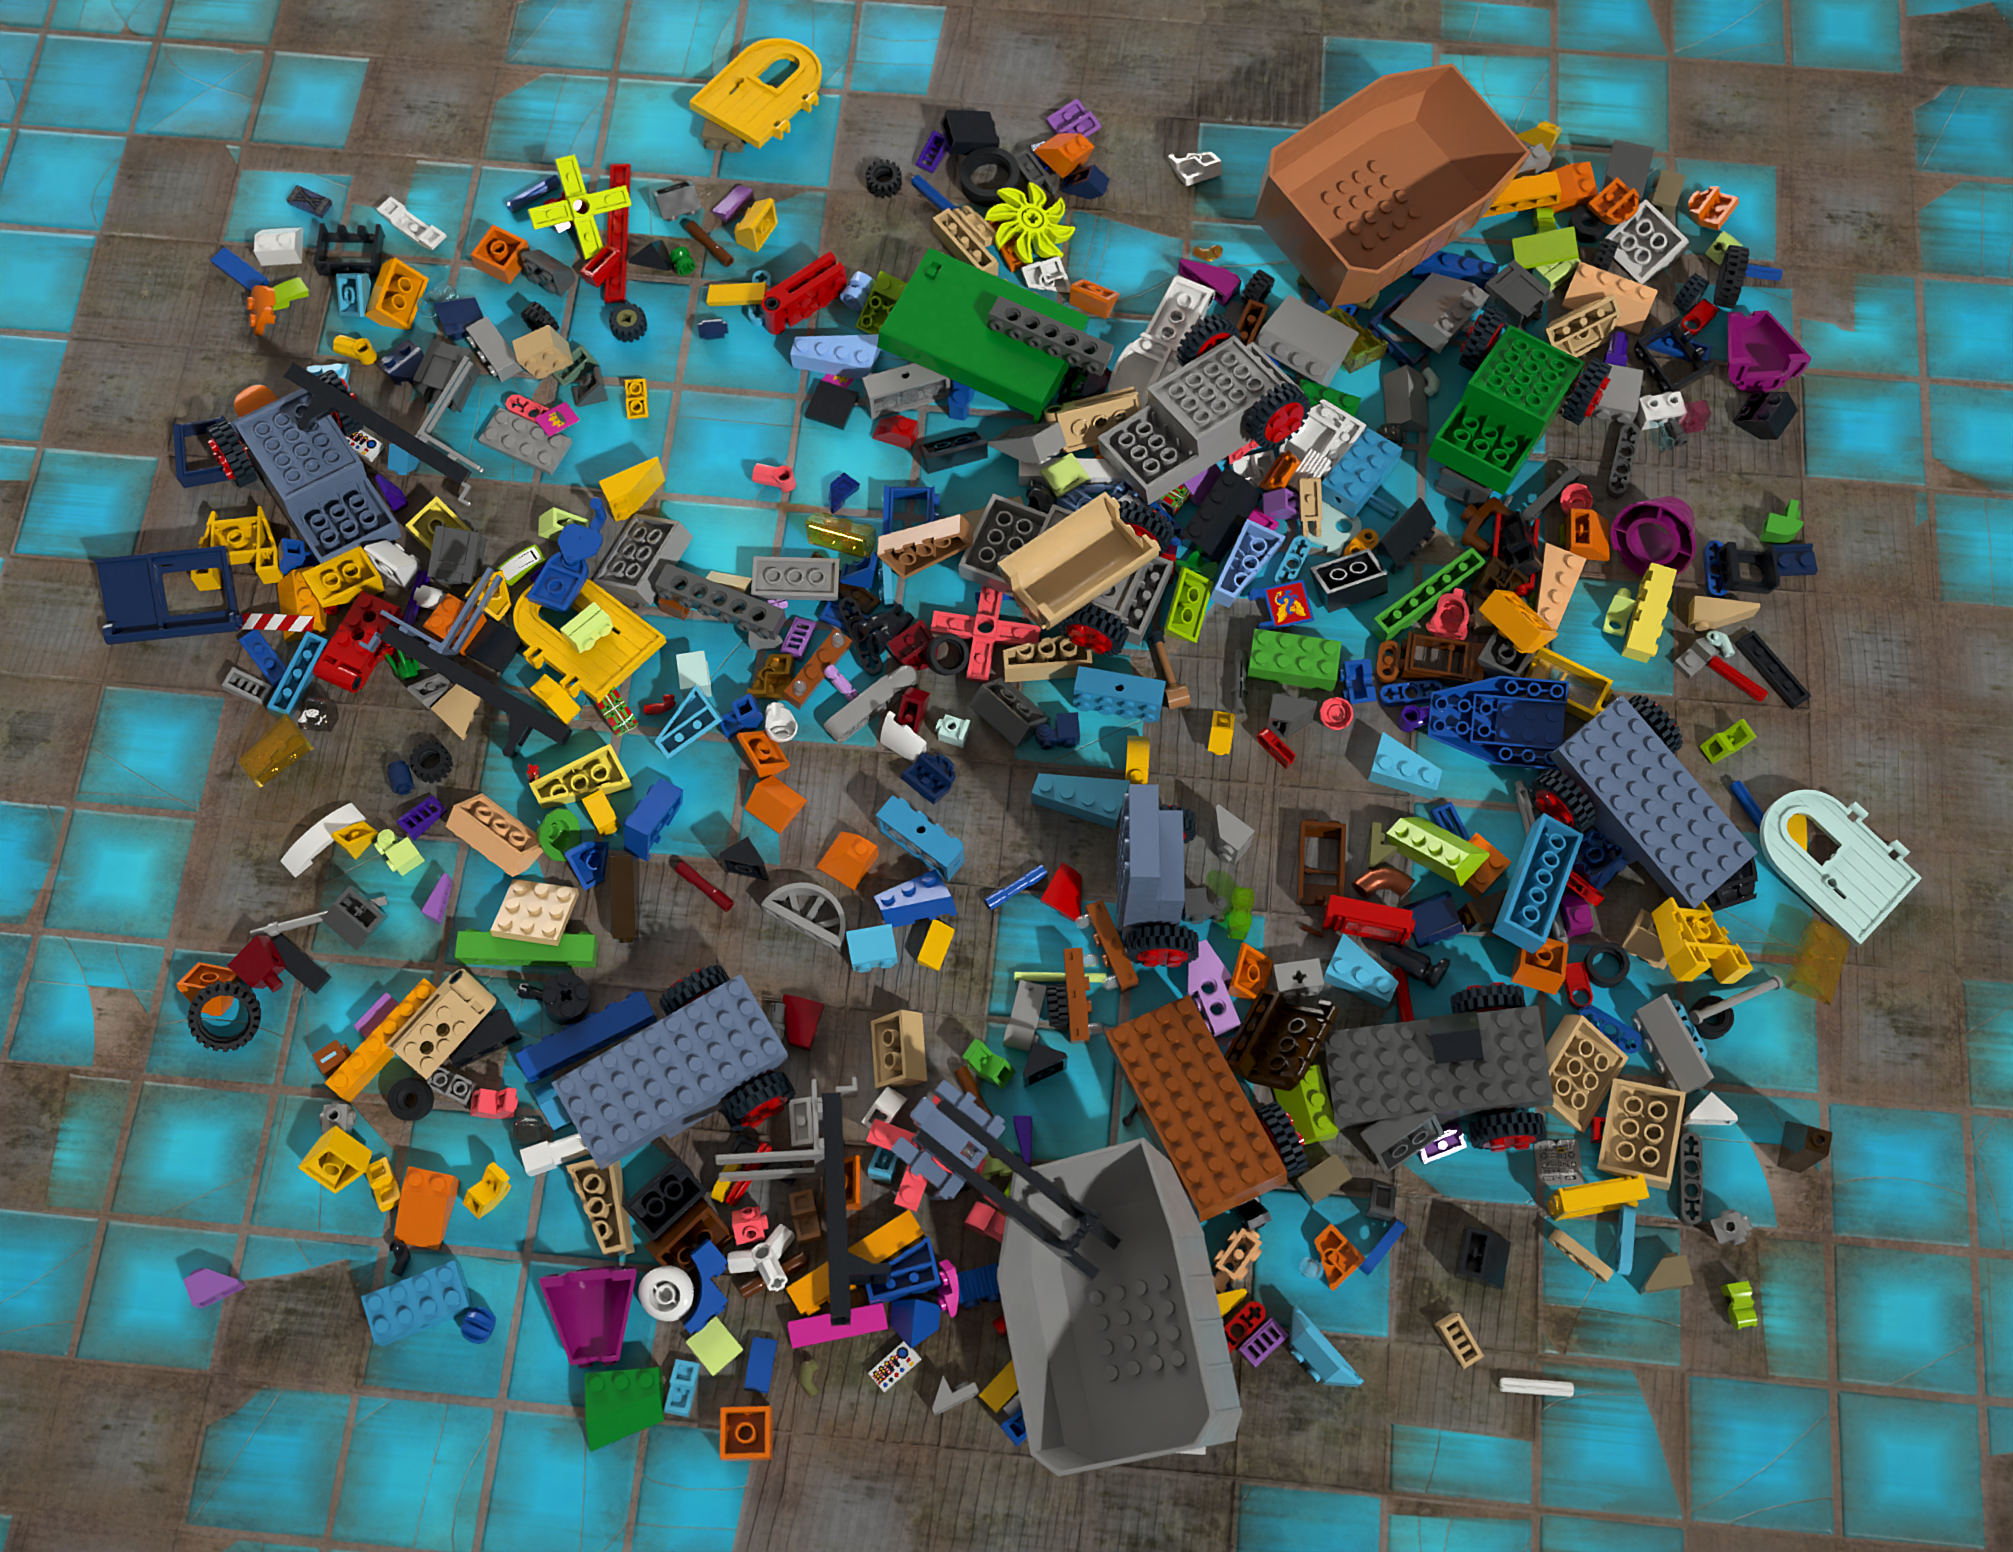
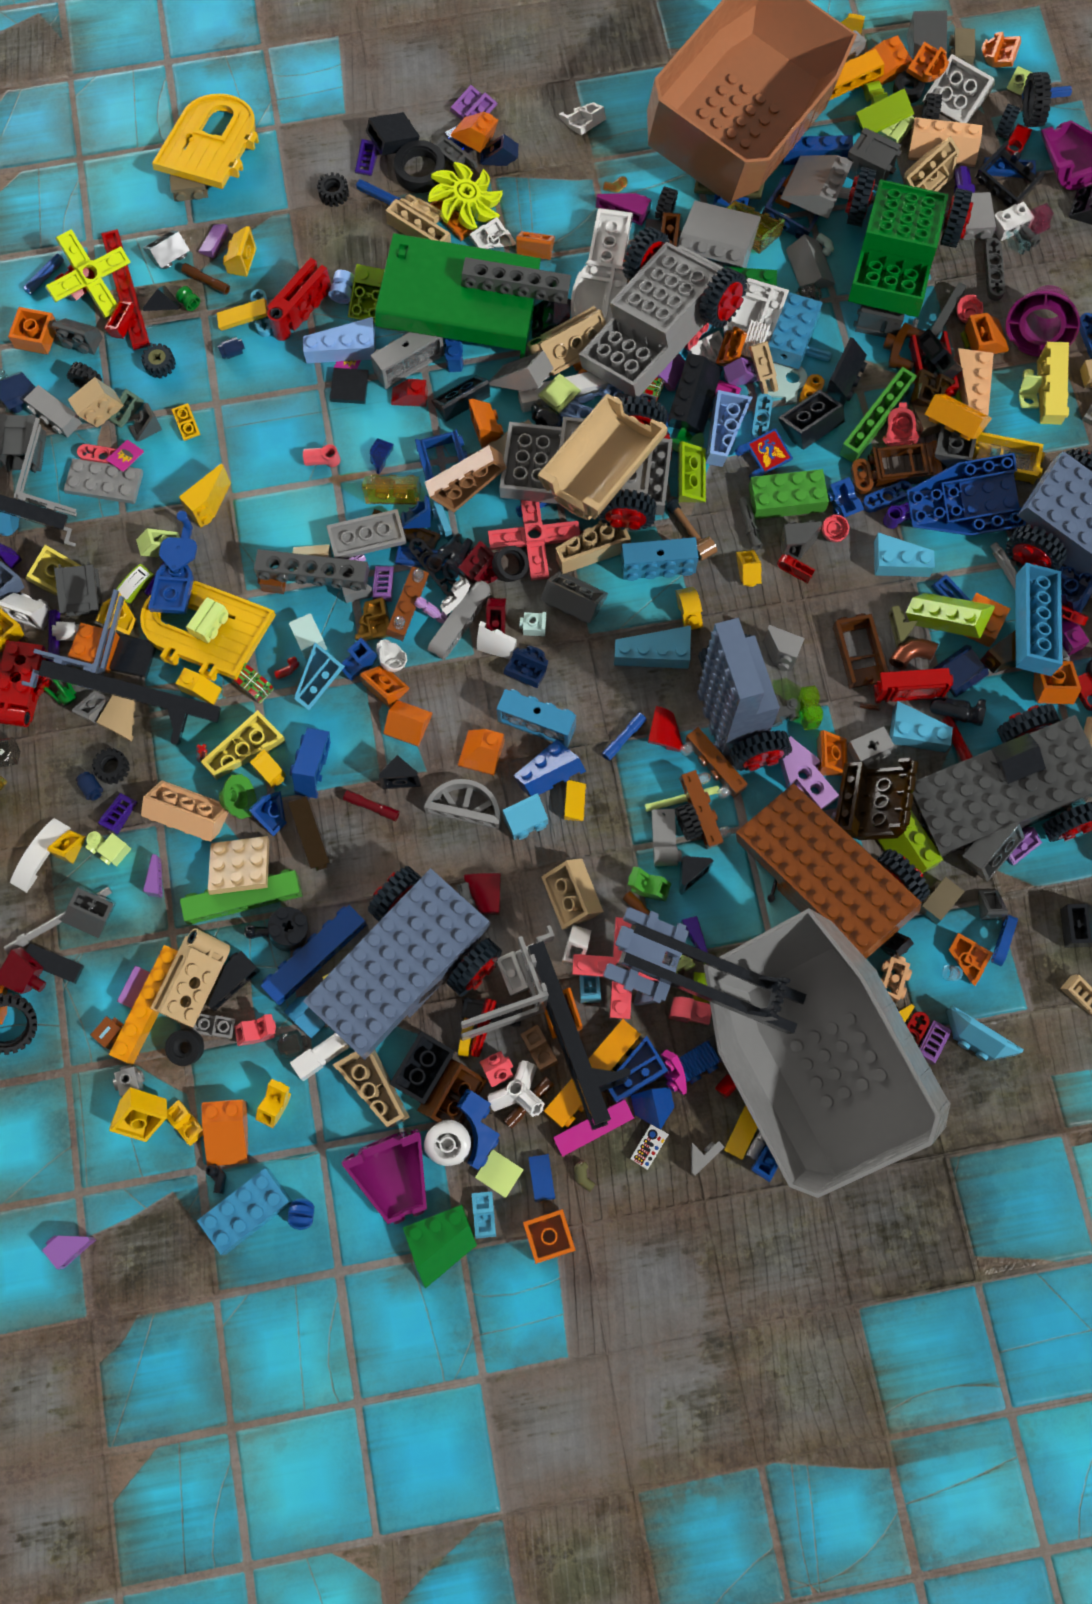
camera: 15 degrees left, 5 degrees up
(641, 557) = (233, 550): light grey slope -> none
(878, 671) = (459, 589): none -> white slope
(970, 485) = (485, 422): none -> orange slope
(1065, 733) = (625, 602): dark blue brick -> none

